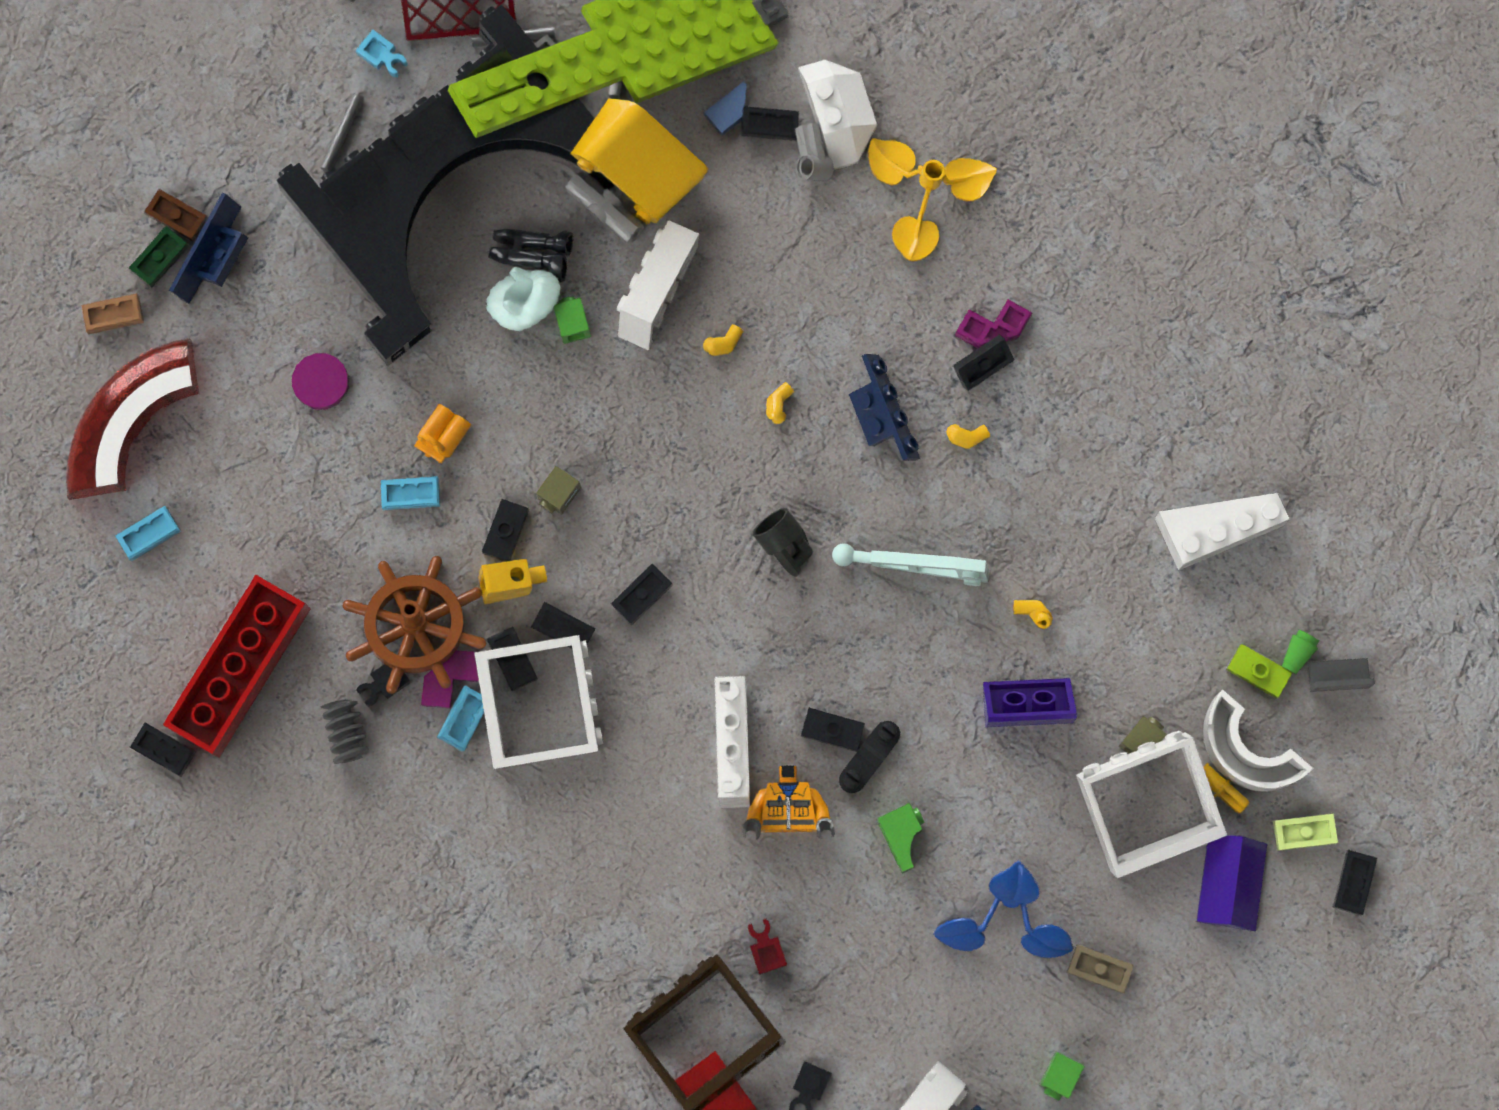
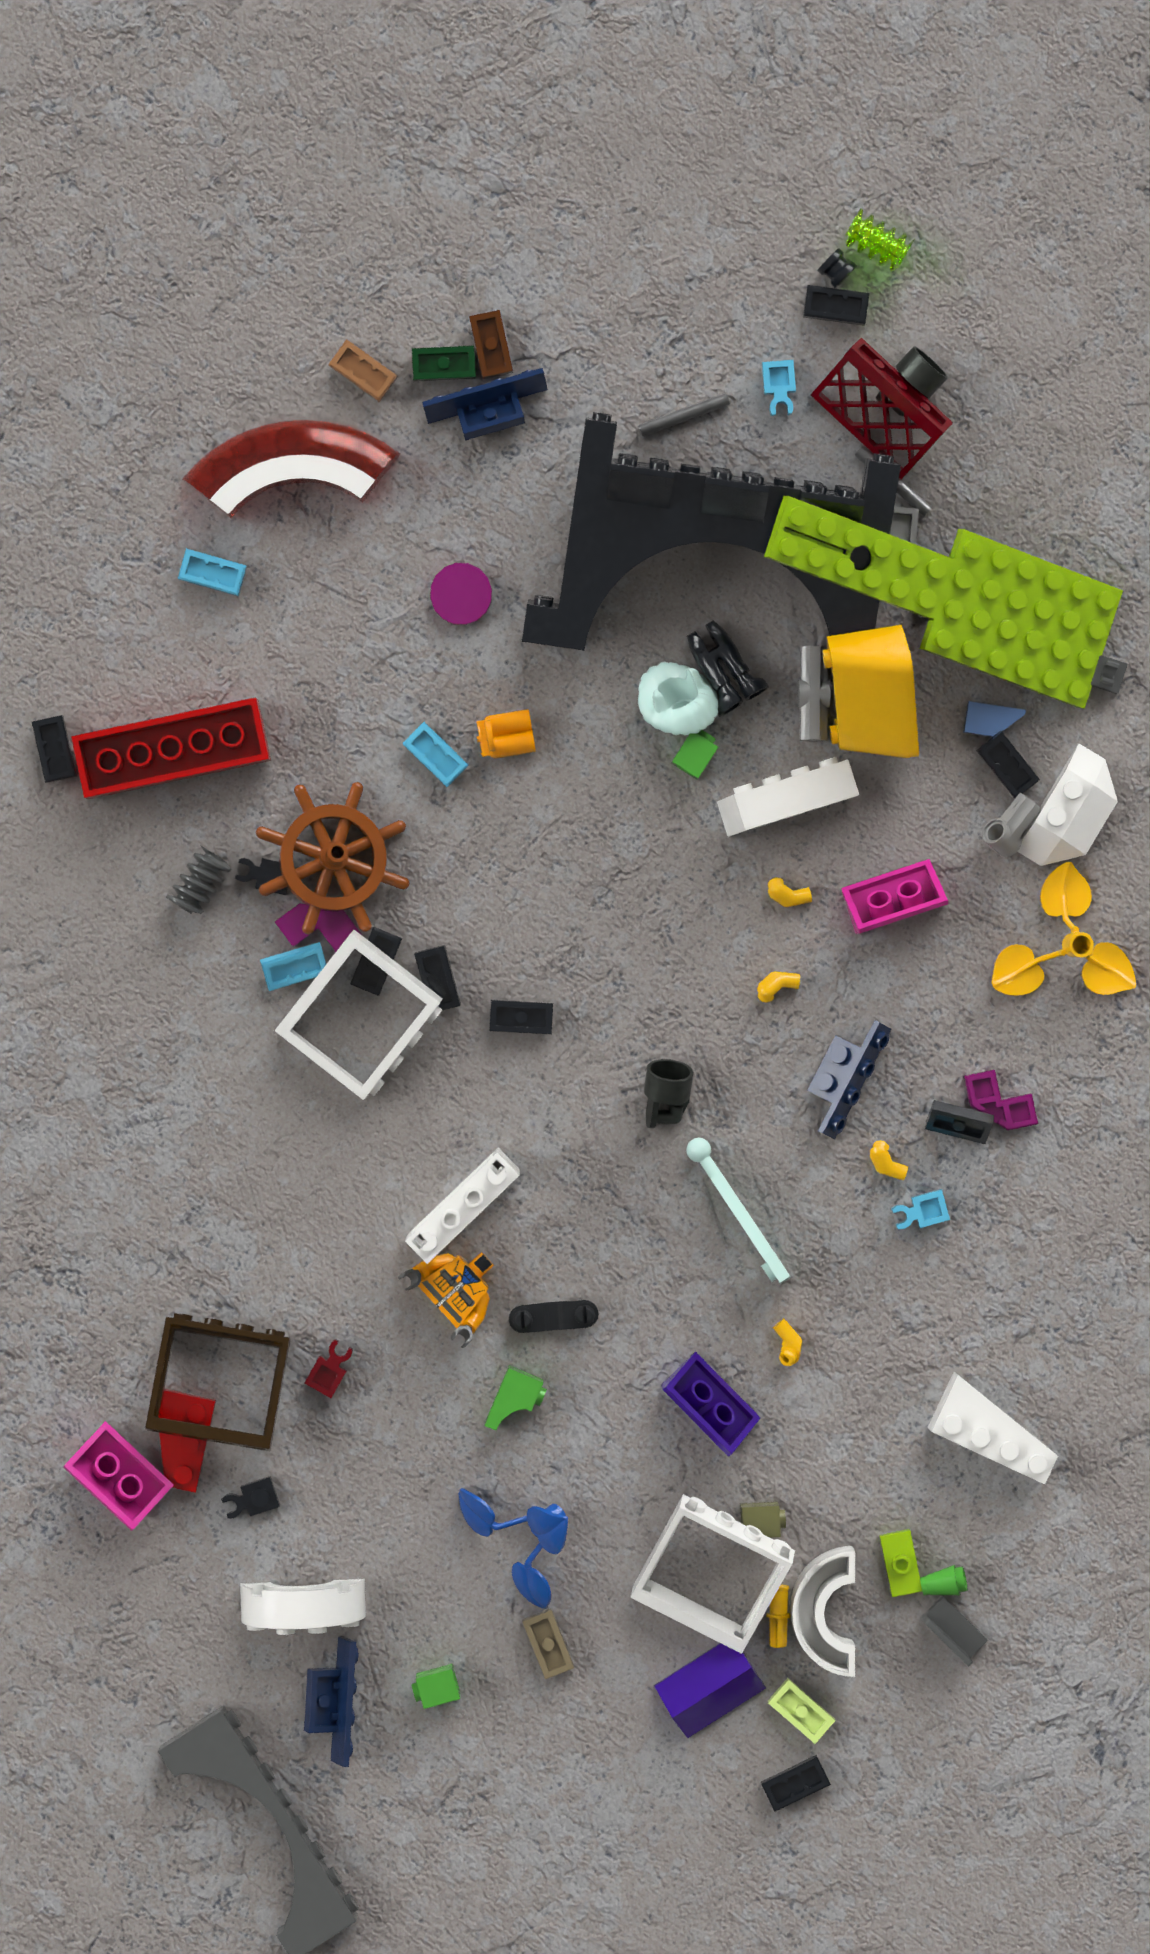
camera: 45 degrees right, 10 degrees up
(499, 586) = (426, 895): yellow torso -> none
(505, 530) = (474, 859): black plate -> none
(557, 491) = (543, 873): olive brick -> none
(790, 273) = (894, 896): none -> dark pink slope
(832, 729) = (549, 1266): black plate -> none
(1024, 437) = (926, 1209): none -> medium azure plate

